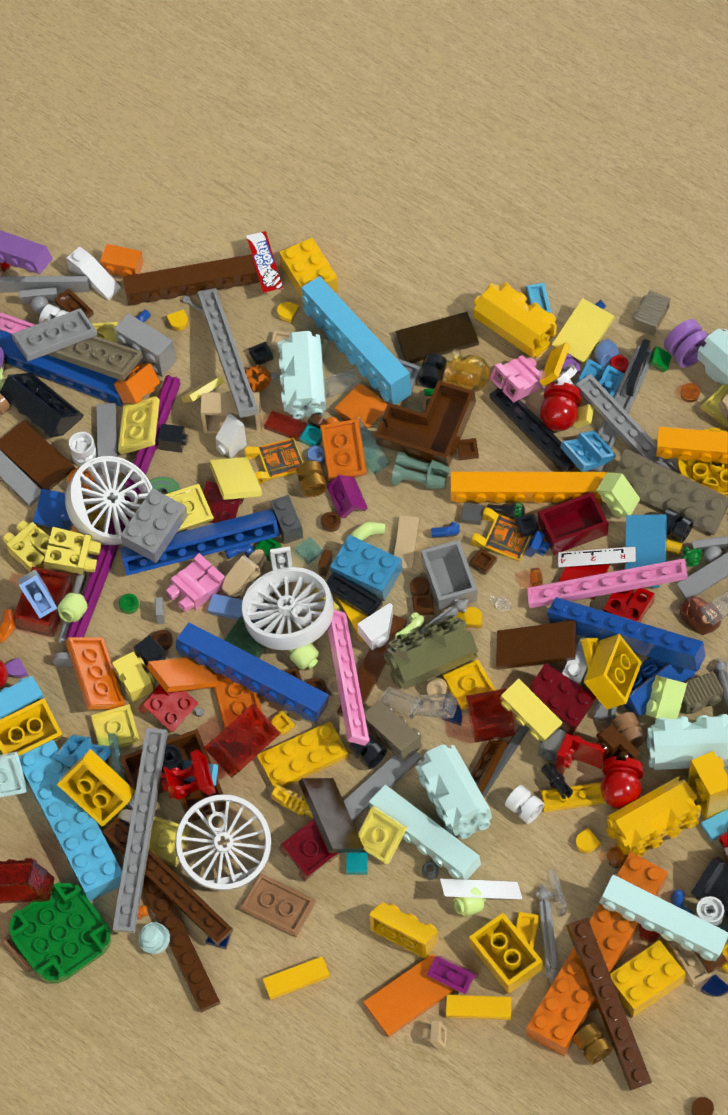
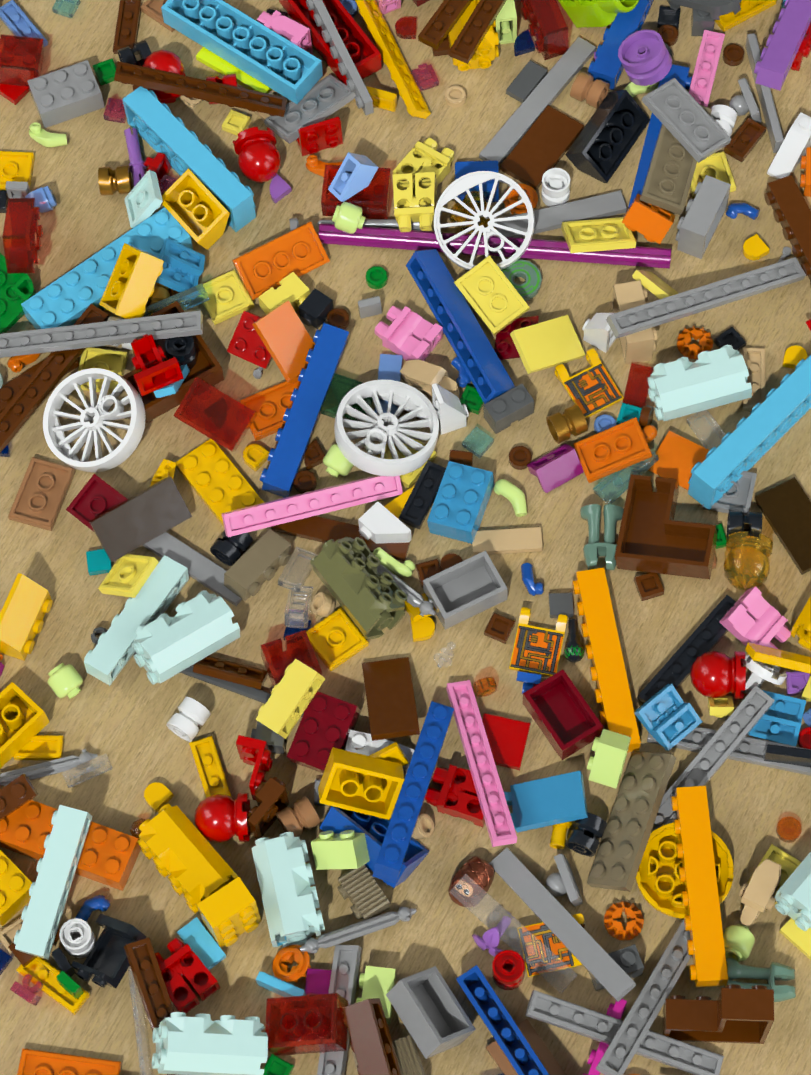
camera: 80 degrees right, 5 degrees up
(154, 525) = (454, 268): light grey piece -> none
(172, 438) = (592, 273): black brick -> none
(488, 889) = (80, 696): white sticker -> none
(526, 525) = (554, 664): black tile -> none
(557, 781) = (221, 750): black pin -> none
(596, 557) = (523, 749): white sticker -> none
(691, 557) = (545, 858): green plant -> none

